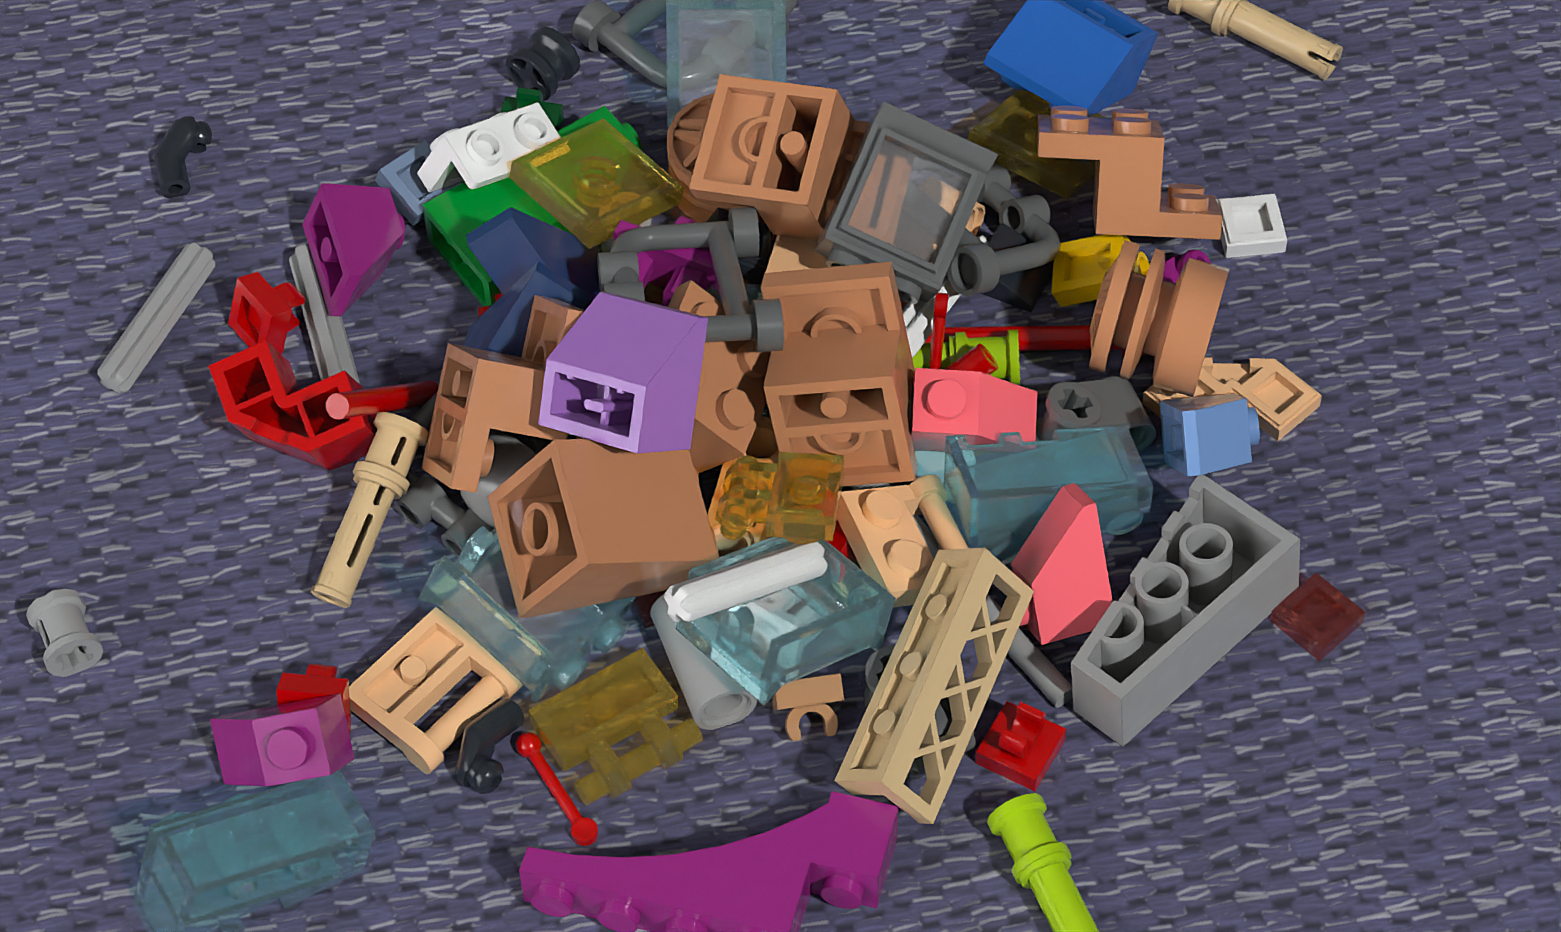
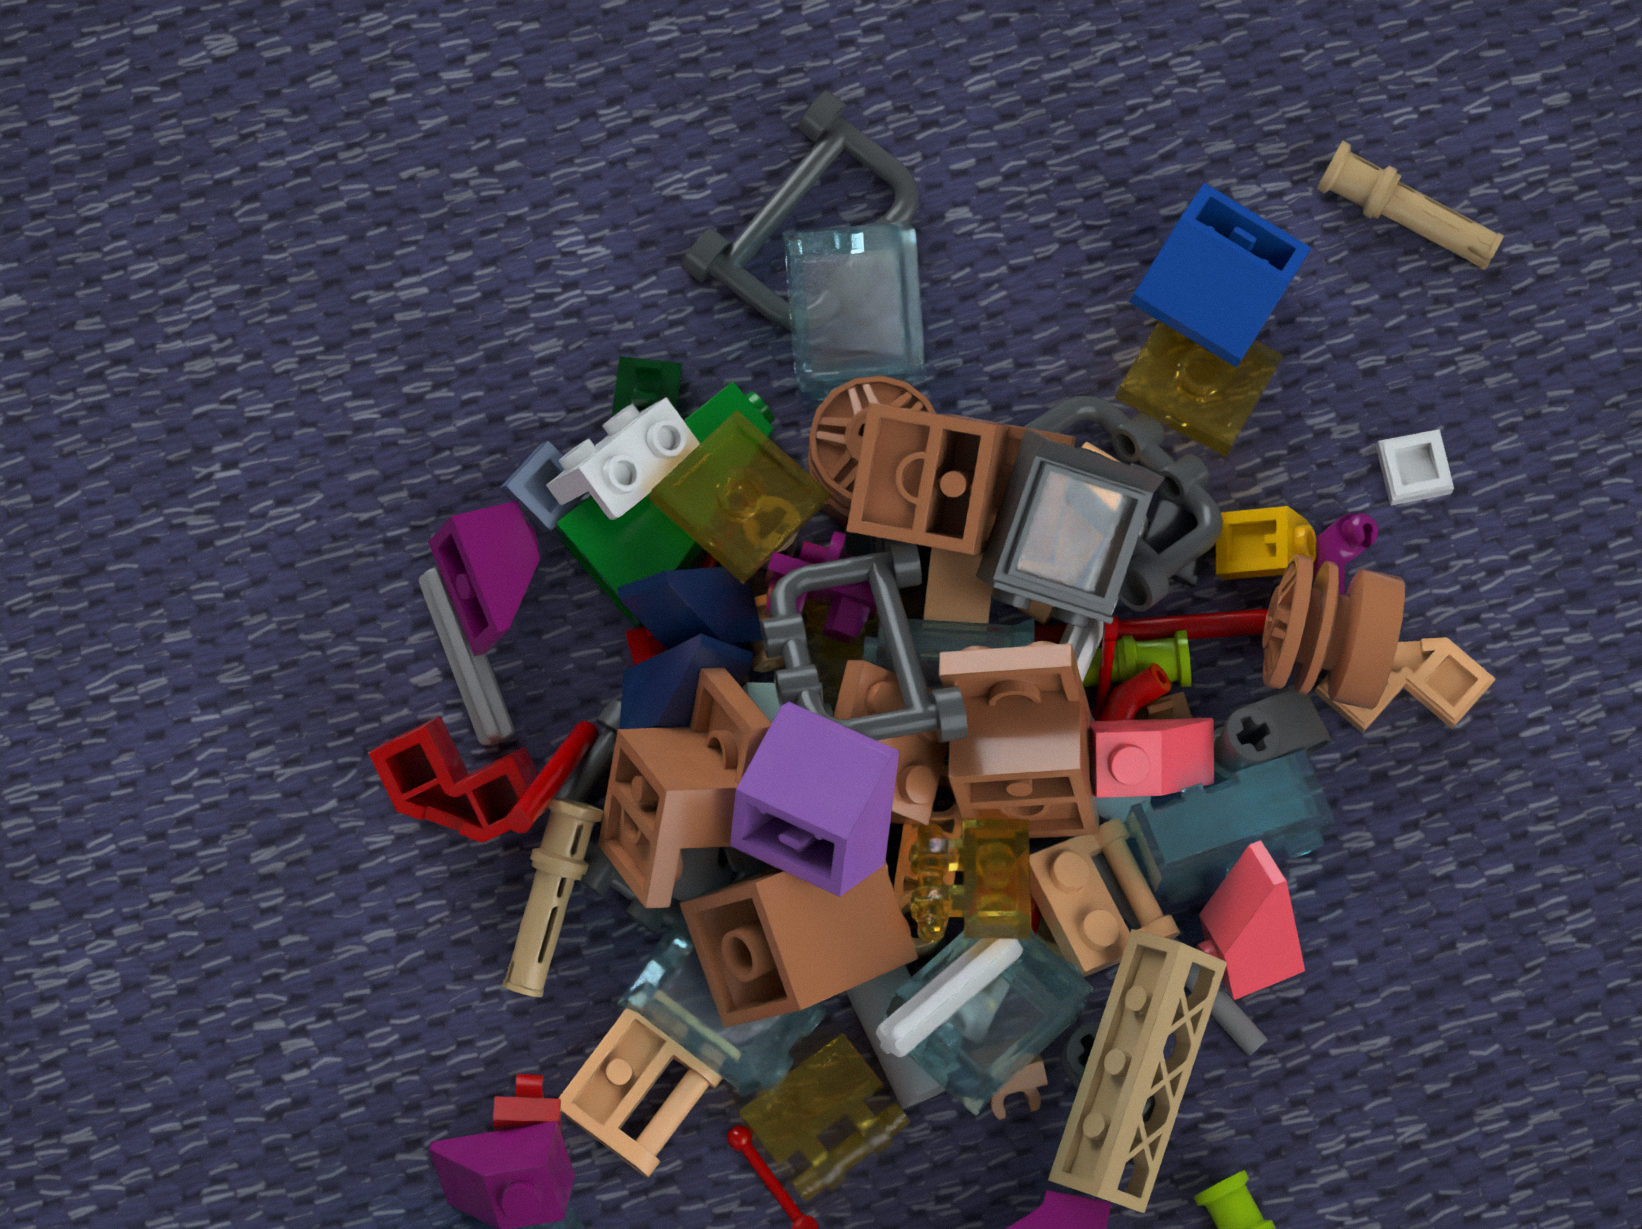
camera: 10 degrees left, 20 degrees up
(64, 632) = (264, 1052): light grey bush -> none
(156, 318) = (291, 662): light grey axle -> none
(173, 150) = (273, 448): black arm -> none
(263, 311) = (406, 659): red tile -> none
(478, 743) = (693, 1142): black arm -> none
(543, 62) = (655, 313): black wheel -> none
(1021, 745) = (1218, 1105): red tile -> none
(1128, 174) = (1286, 433): nougat bracket -> none
(1184, 609) = (1371, 951): light grey wedge -> none
(1208, 433) = (1385, 751): medium blue slope -> none
(1317, 616) = (1499, 936): clear red tile -> none

